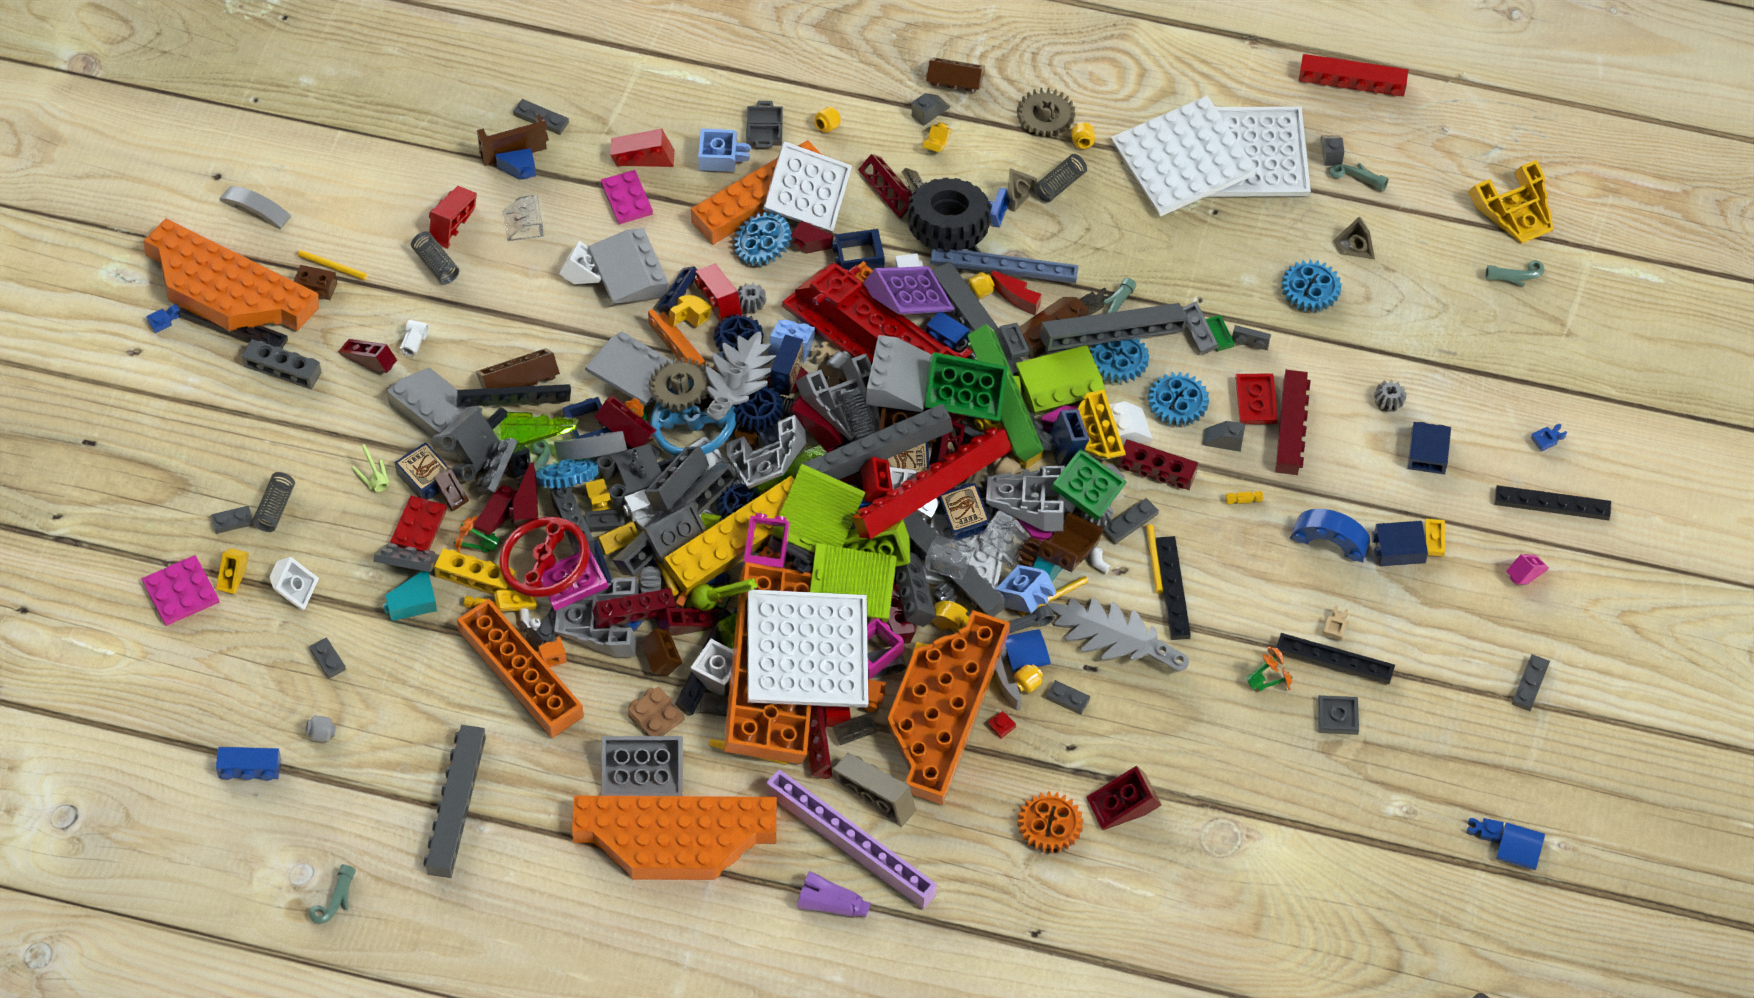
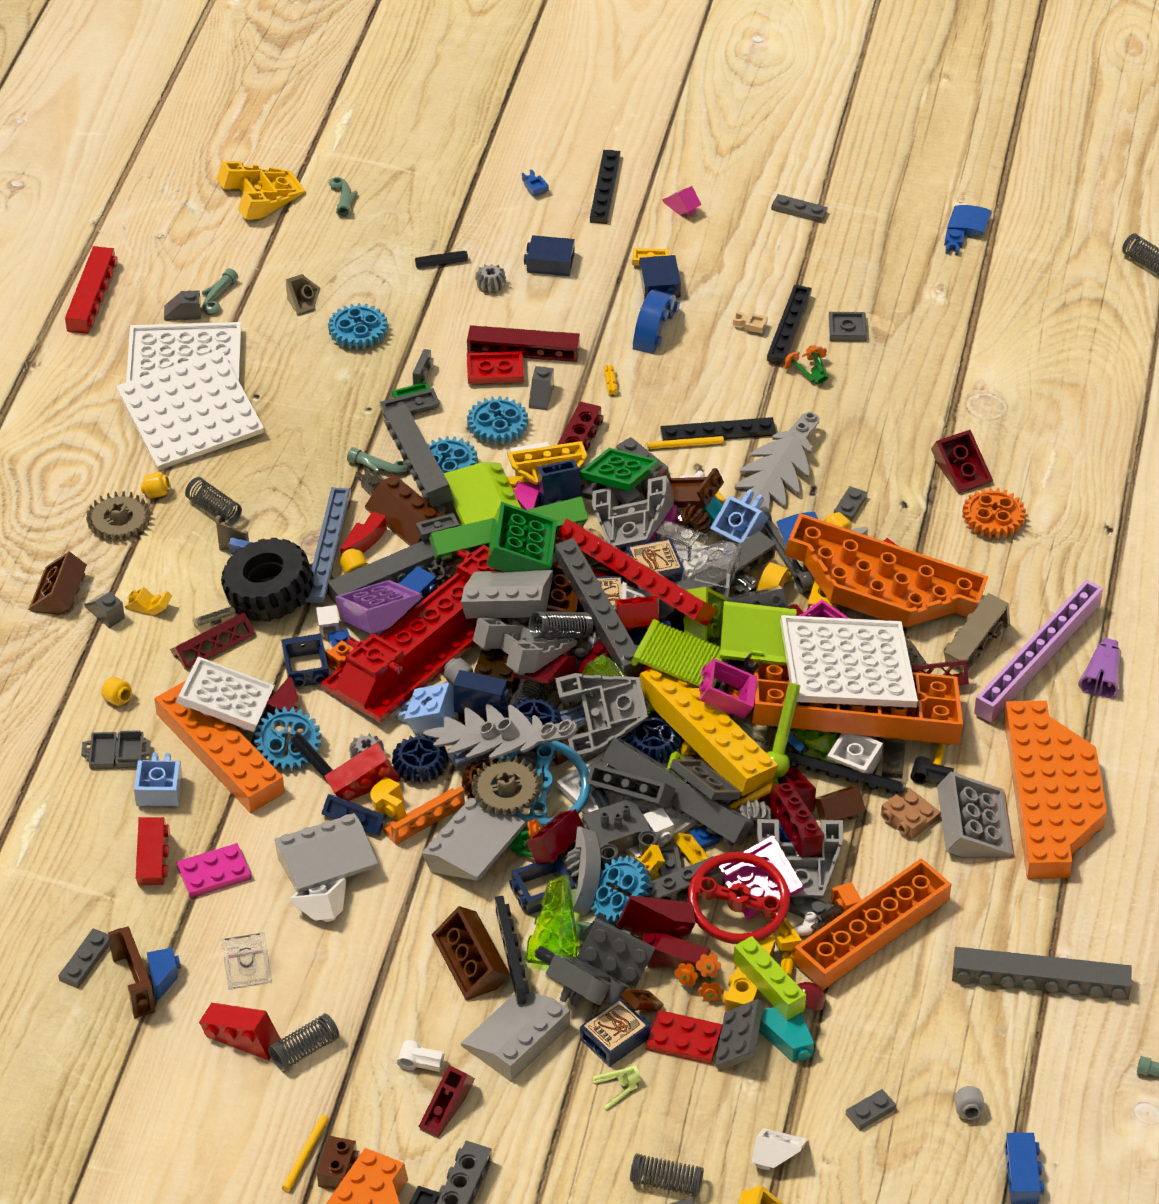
camera: 90 degrees left, 10 degrees down
(445, 614) = (814, 995): none -> dark red hair
(453, 574) = (769, 978): none -> lime brick
(703, 731) = (925, 771): none -> black piece
(740, 255) = (311, 754): none -> black axle
(1421, 356) = (439, 259): none -> black axle

